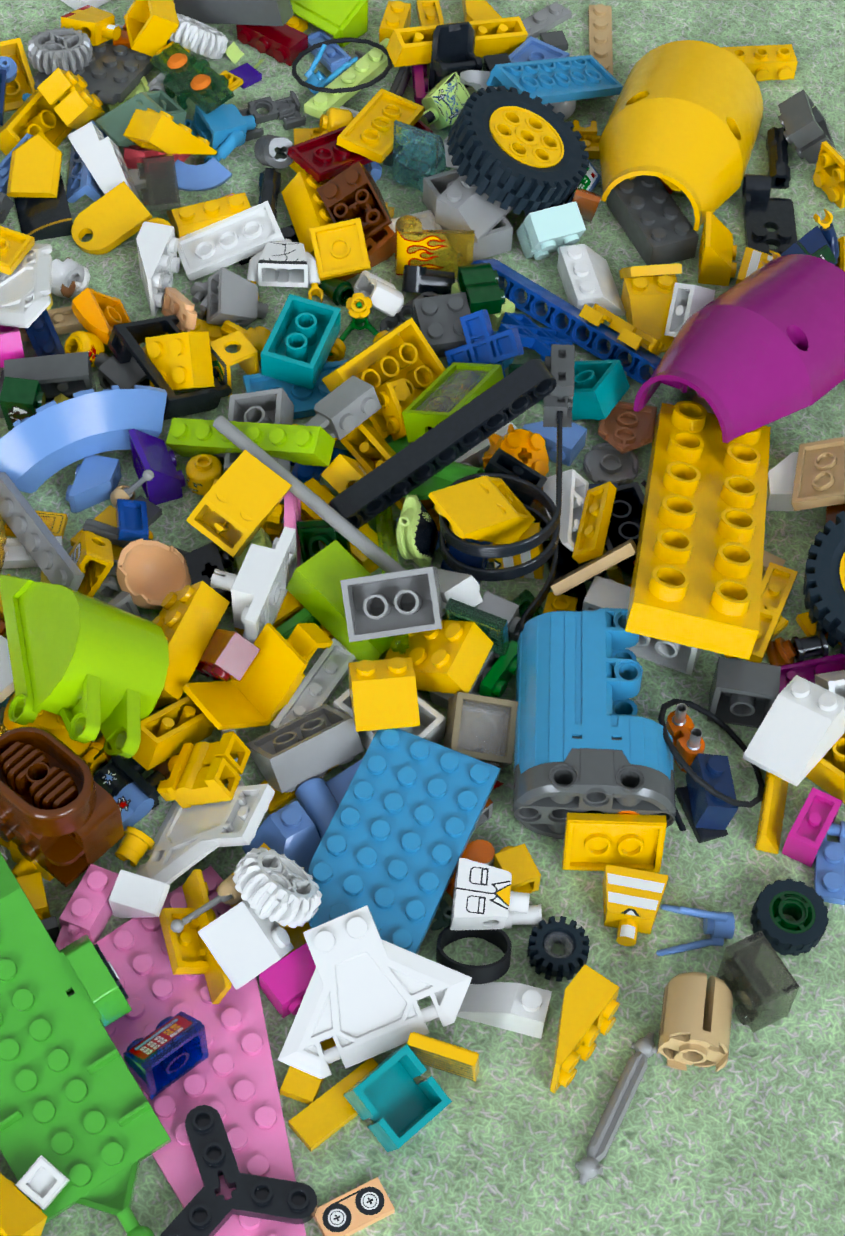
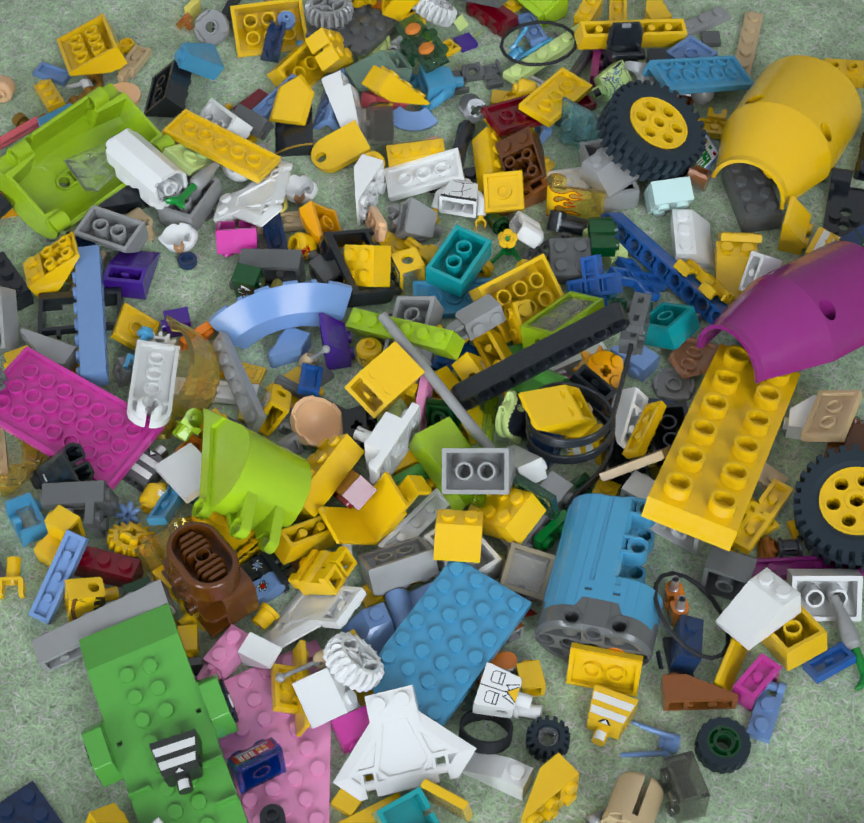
camera: 15 degrees right, 0 degrees up
(57, 1067) = (179, 760): none -> pearl dark grey torso
(731, 856) = (689, 693): none -> dark orange slope

